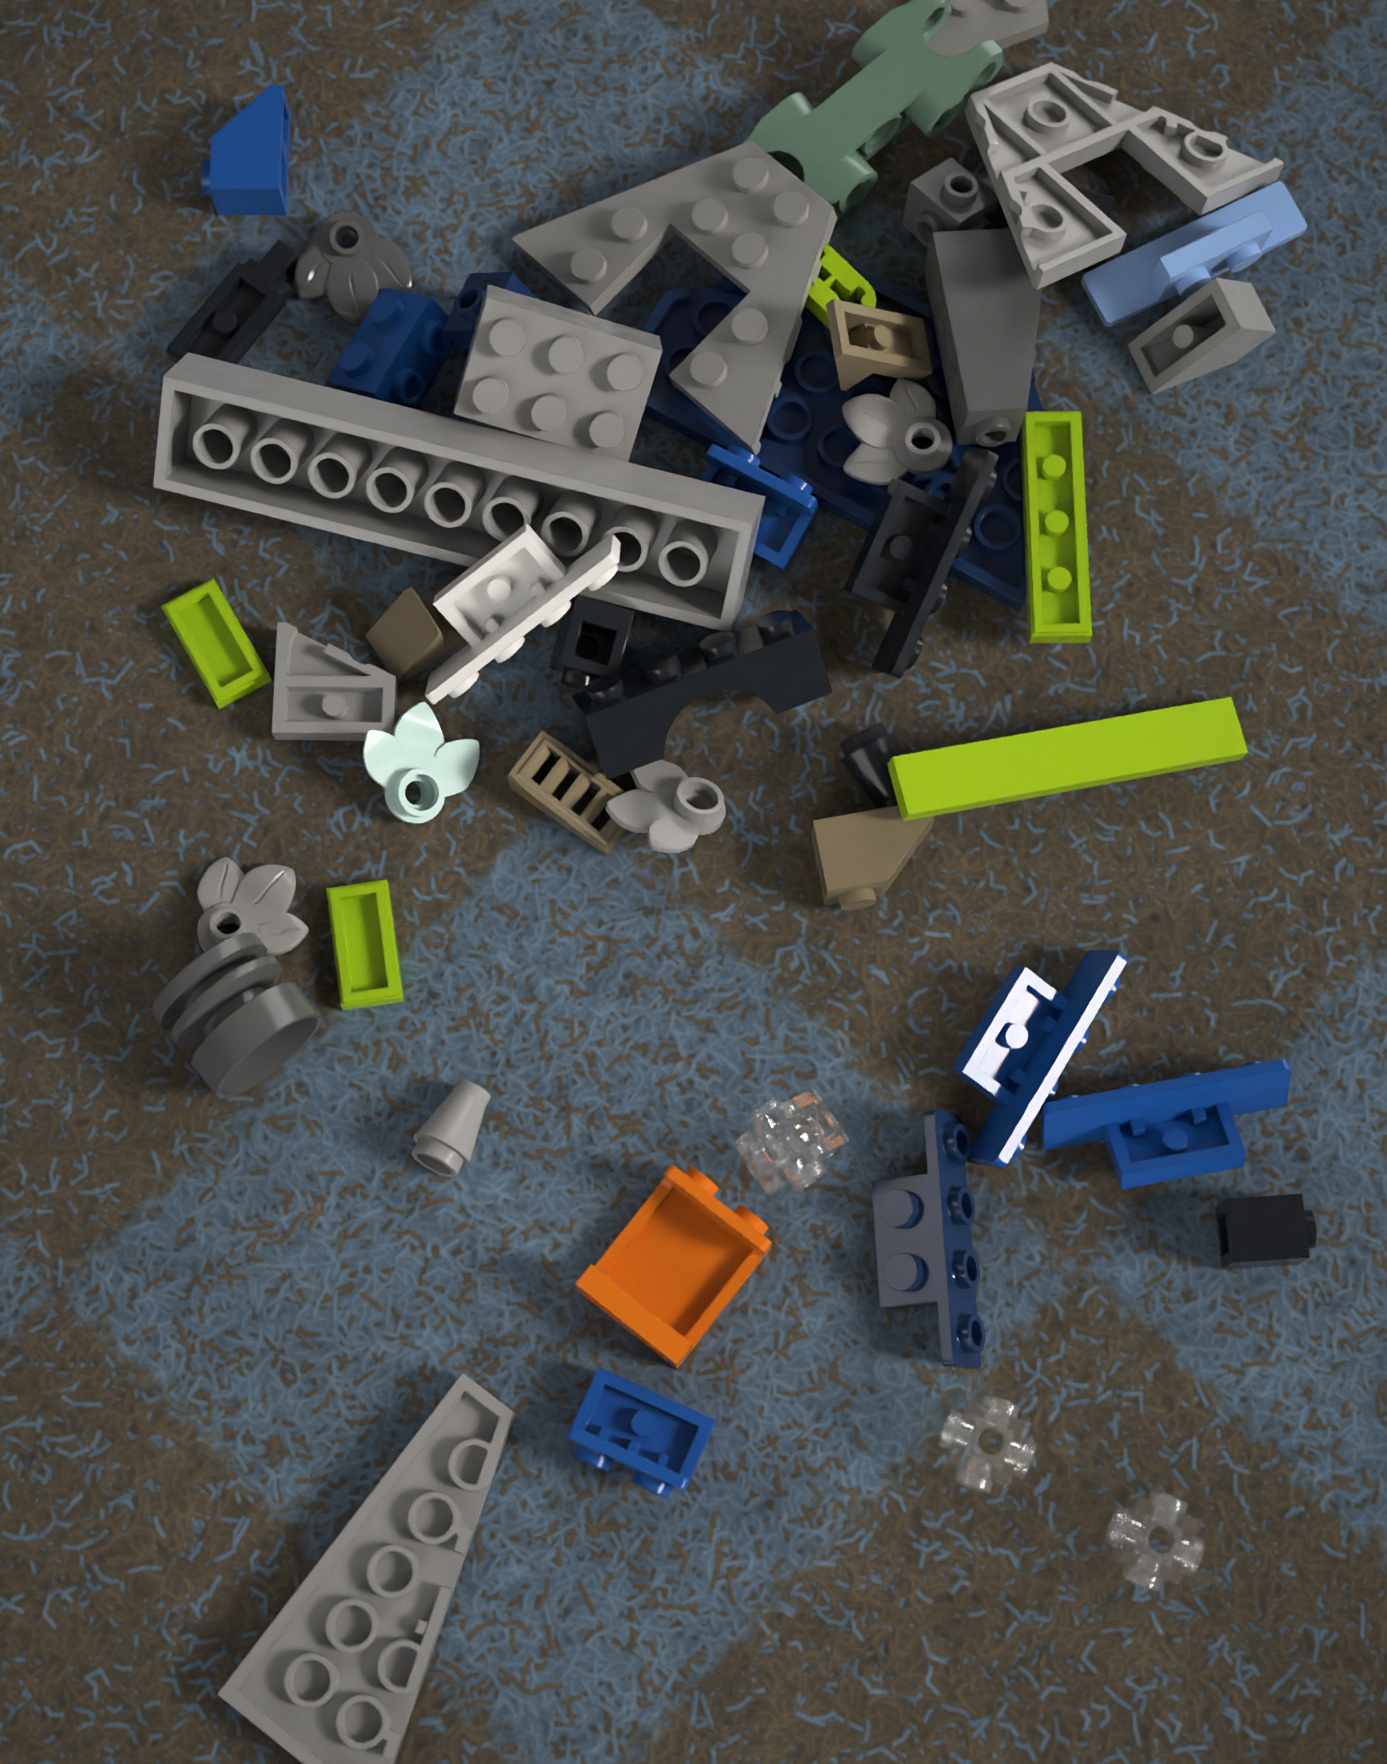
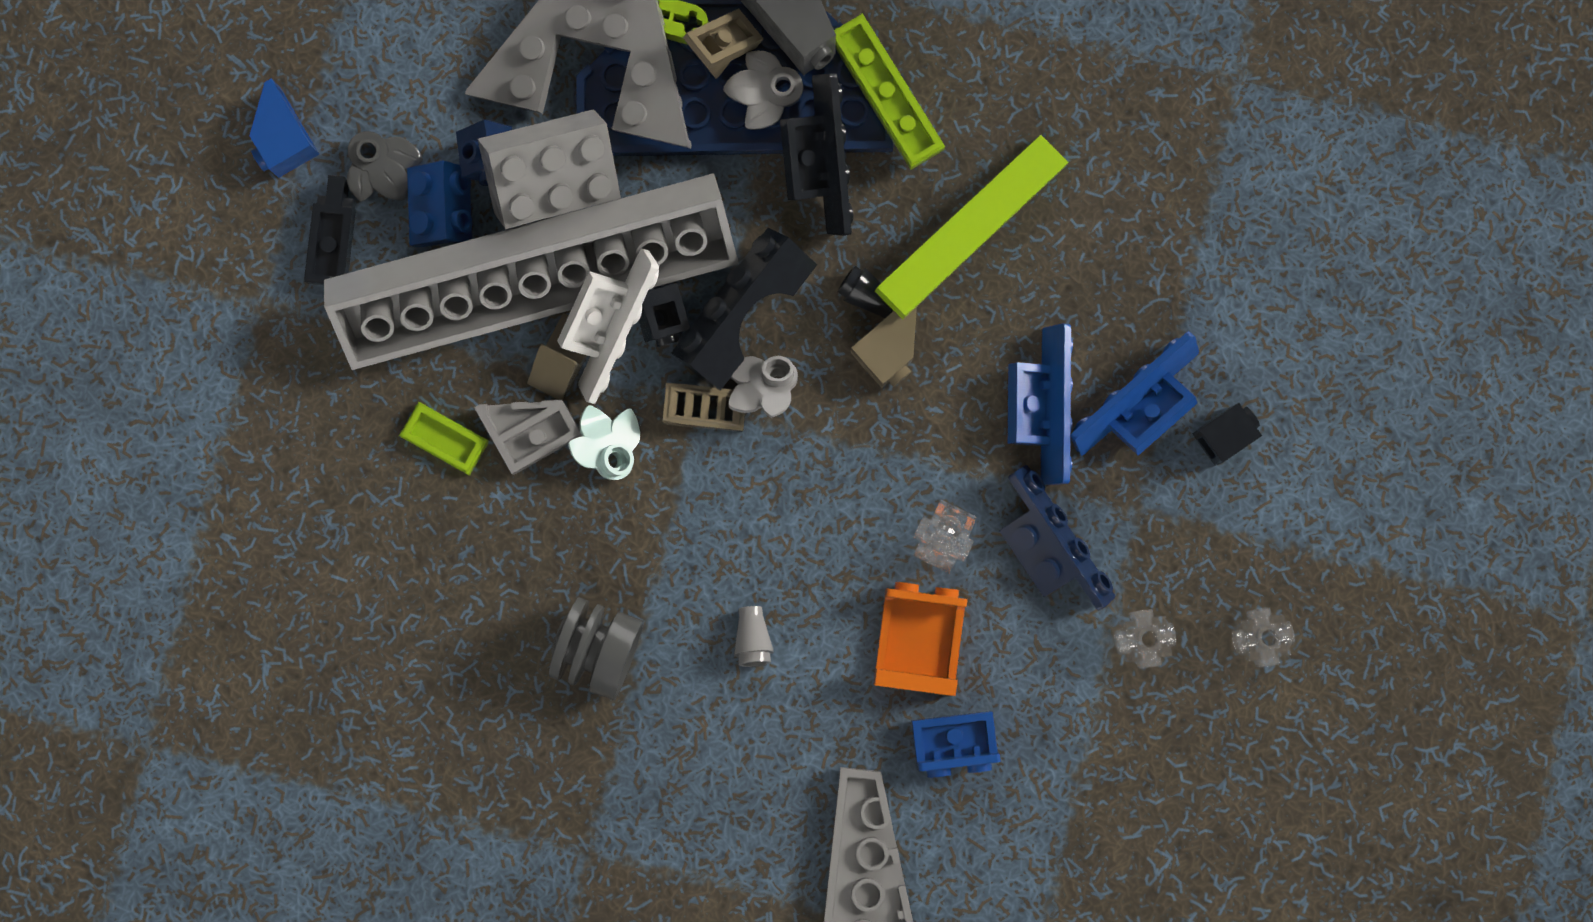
camera: 30 degrees left, 10 degrees up
(250, 901) = (560, 576): light grey plate -> none
(364, 945) = (638, 562): lime tile -> none
(787, 504) = (724, 164): blue bracket -> none

